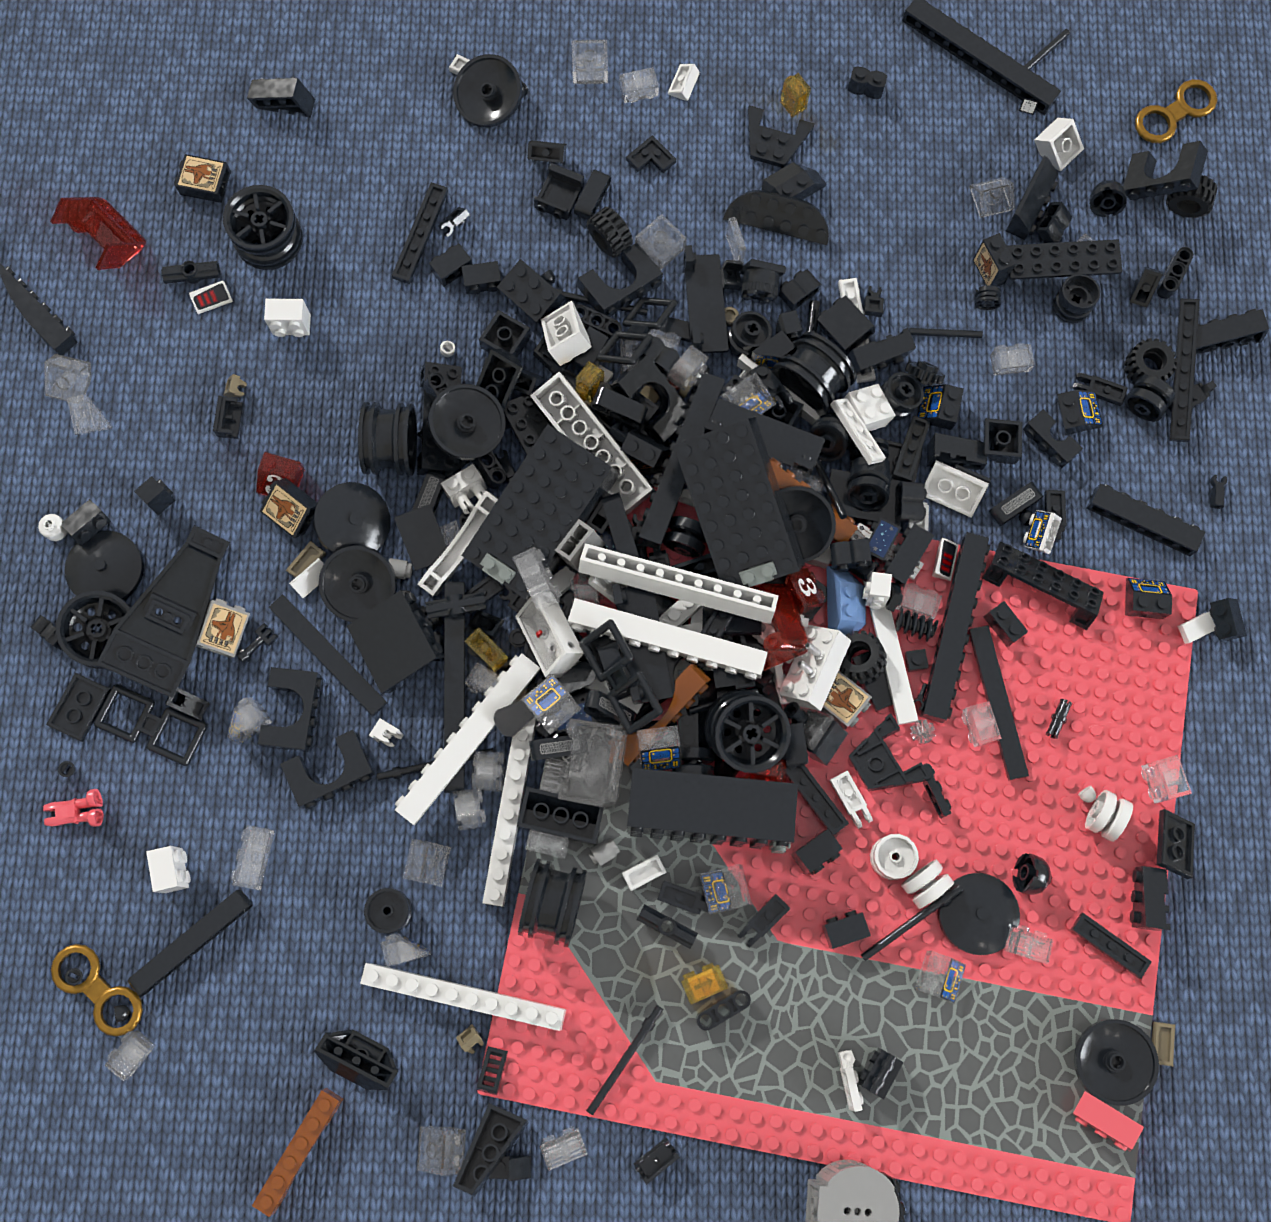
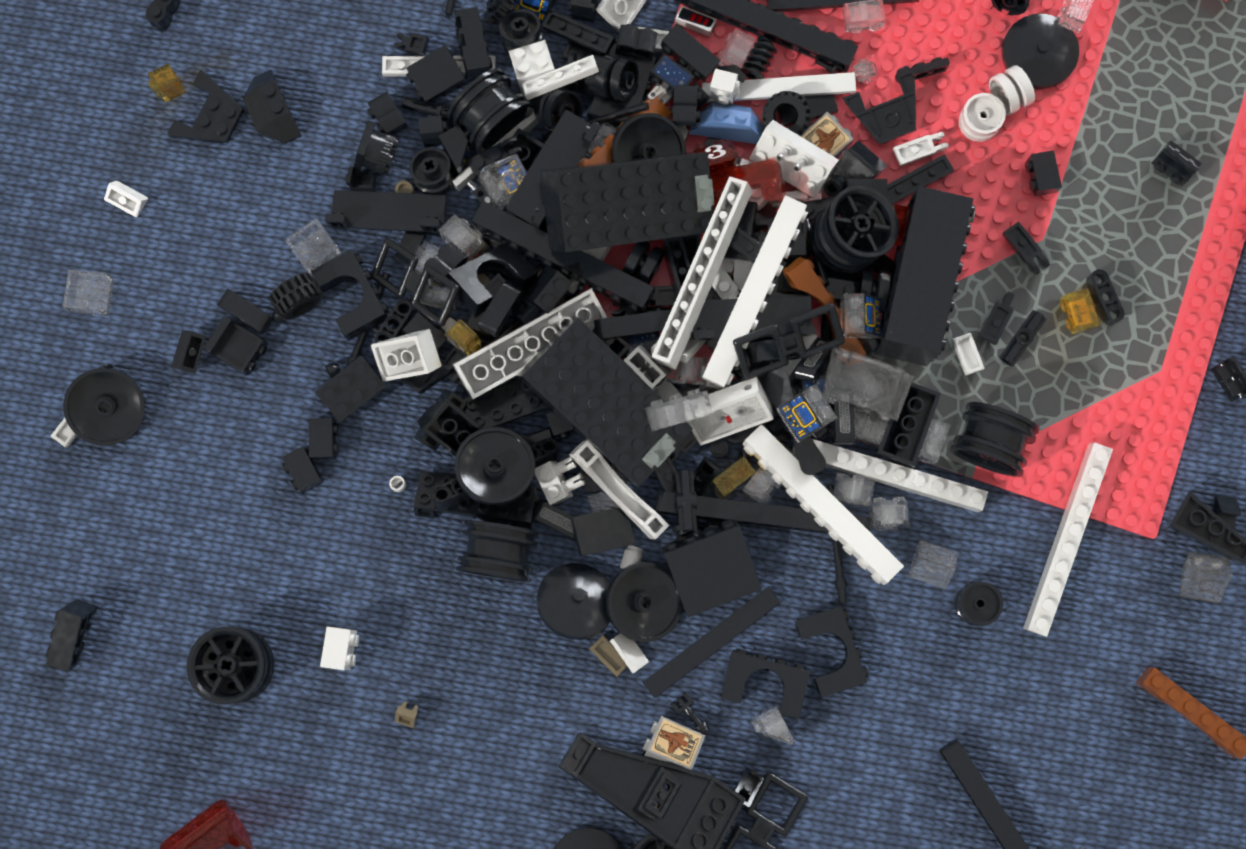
camera: 75 degrees left, 5 degrees up
(155, 495) = (520, 805): black brick -> none
(168, 869) = (915, 819): white brick -> none
(180, 273) = (266, 765): black piece -> none
(202, 178) = (155, 731): brick -> none
(210, 297) = (299, 732): slope -> none
(227, 417) = (440, 723): black hinge -> none
(252, 857) = (910, 734): clear brick -> none
(276, 468) = (516, 675): clear red slope -> none
(289, 507) = (553, 665): brick -> none
(357, 1059) = (1116, 645): black wedge -> none
(383, 731) = (801, 590): white hinge -> none
(401, 950) = (1019, 591): clear slope -> none
(420, 233) = (259, 499): black plate -> none
(456, 218) = (248, 459): plate -> none
(469, 1038) = (1105, 539): dark tan tile -> none
(489, 1089) = (1156, 519): black slope -> none
(506, 334) = (395, 421): black brick -> none
(563, 1148) = (1213, 463): clear brick -> none
(604, 852) = (945, 385): light grey brick -> none
(638, 85) = (124, 245): clear brick -> none
(648, 1025) = (1111, 369): black bar -> none
(651, 151) = (204, 243): black plate -> none
(725, 889) = (995, 277): clear slope -> none
(735, 240) = (326, 169): clear tile -> none
(780, 215) = (302, 121): black plate -> none
(816, 852) = (971, 183): black brick -> none
(850, 1080) = (1180, 192): white hinge -> none
(916, 660) = (792, 65): black plate -> none
(940, 976) = (1094, 96): clear slope -> none
(944, 900) = (1047, 120): black bar -> none

